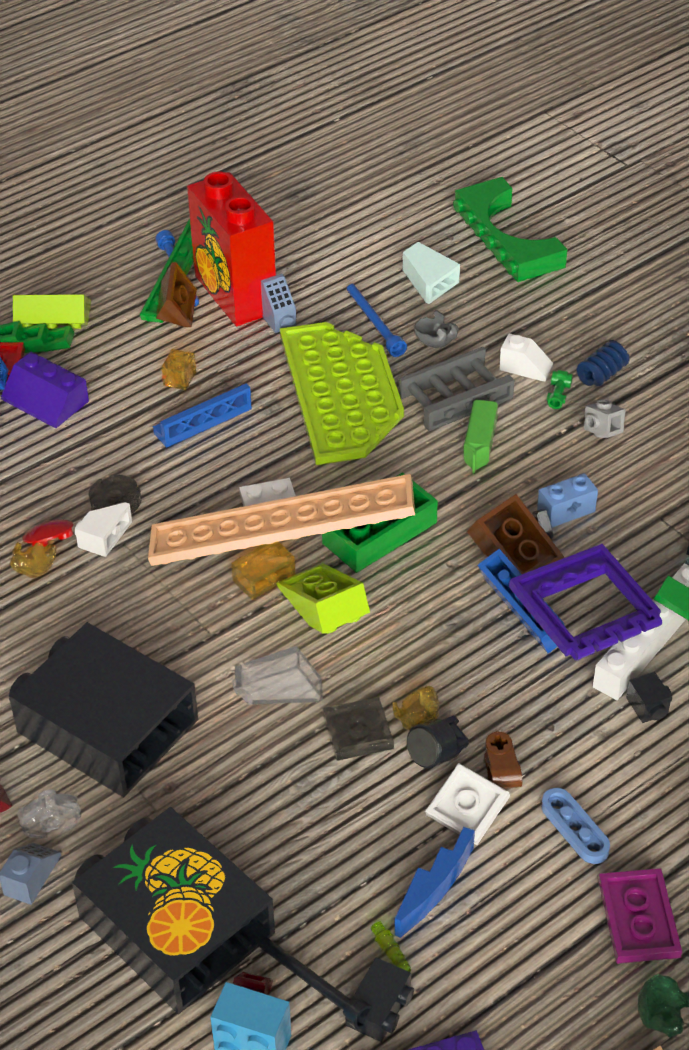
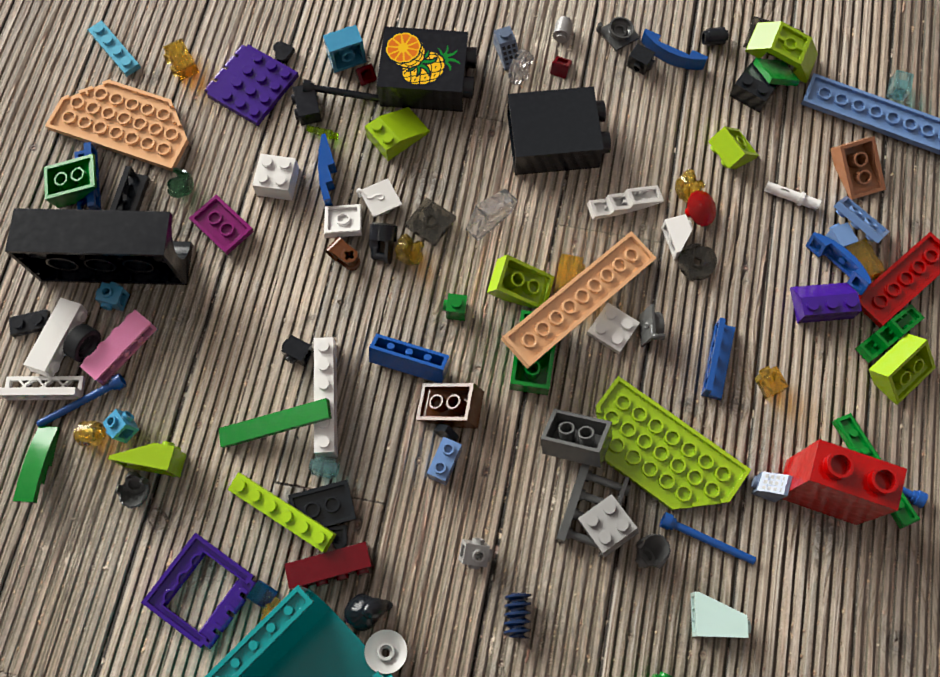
camera: 140 degrees right, 25 degrees up
(110, 596) = (622, 203): none -> white slope
(176, 297) = (838, 432): reddish brown slope -> none
(237, 467) = (651, 325): none -> dark grey hat
(294, 864) = (395, 132): none -> lime slope
(395, 796) = (380, 198): none -> white hat
(417, 424) = (576, 437): none -> dark grey brick
(419, 617) = (455, 307): none -> green brick
(460, 350) = (608, 525): none -> light grey brick
(480, 433) = (542, 479): bright green piece -> none
(512, 919) = (276, 177): none -> white brick
(524, 358) = (572, 577): white slope -> none
(561, 381) = (534, 577): green bar -> none
(572, 571) = (388, 378): dark purple hinge -> none
(572, 815) = (278, 243): medium blue plate -> none

